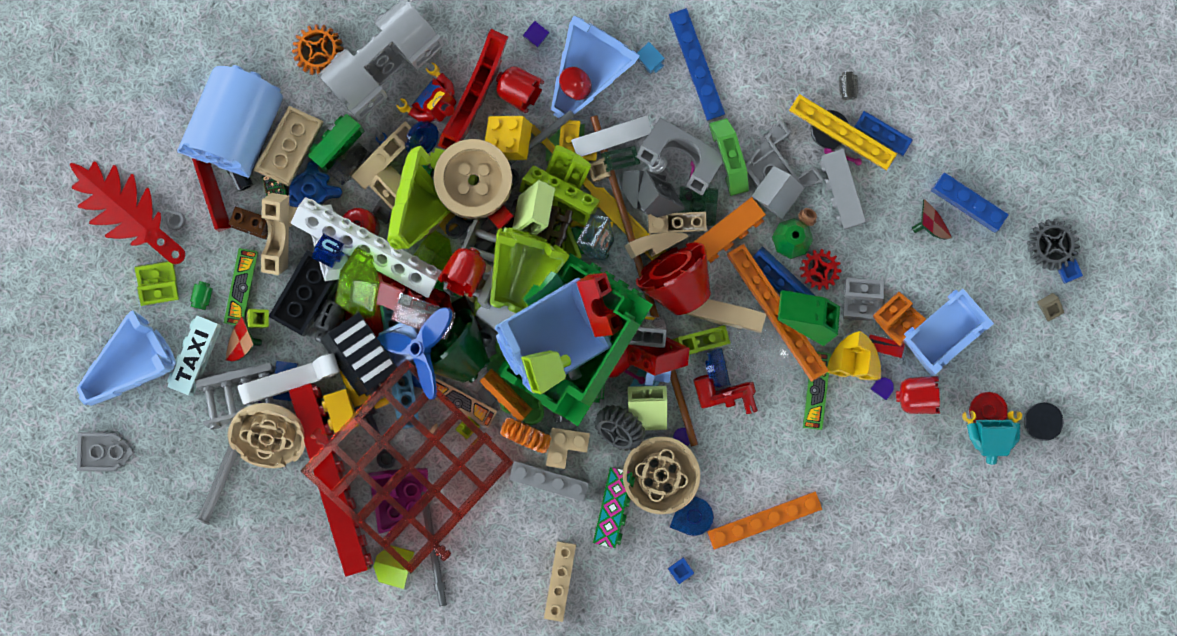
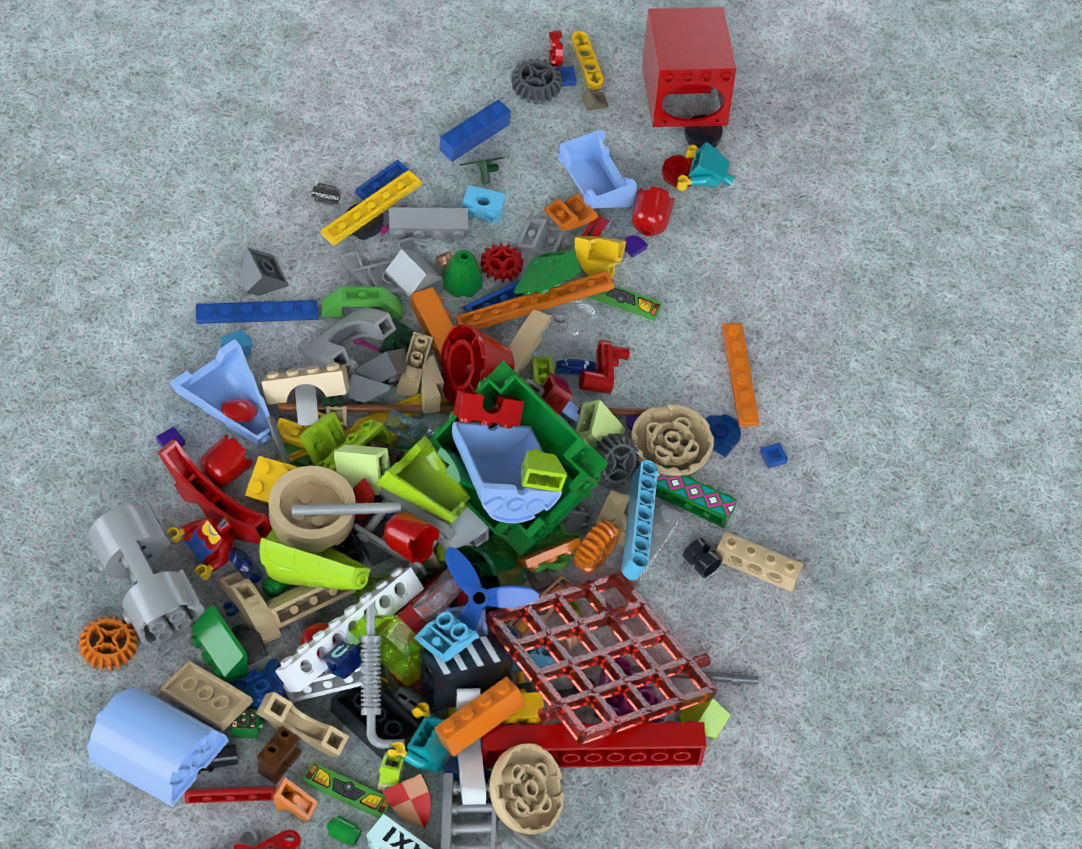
camera: 85 degrees left, 30 degrees down
(214, 248) = (294, 799): none -> orange slope
(287, 343) = (425, 747): none -> teal torso
(311, 379) = (479, 716): none -> orange brick
(314, 280) = (371, 681): none -> light grey piece
(374, 331) = (445, 636): none -> medium azure slope
(471, 209) = (350, 508): none -> light grey piece
(549, 463) = (640, 520): none -> medium azure beam
(549, 530) = (704, 559): none -> black wheel
(625, 152) = (330, 379): none -> tan arch
(738, 55) = (261, 273): none -> dark grey slope
(887, 223) = (484, 203): none -> medium azure brick
(1094, 253) = (556, 53): none -> red plate
(1098, 286) = (590, 60): none -> yellow beam
(1102, 389) = (688, 55): none -> red container

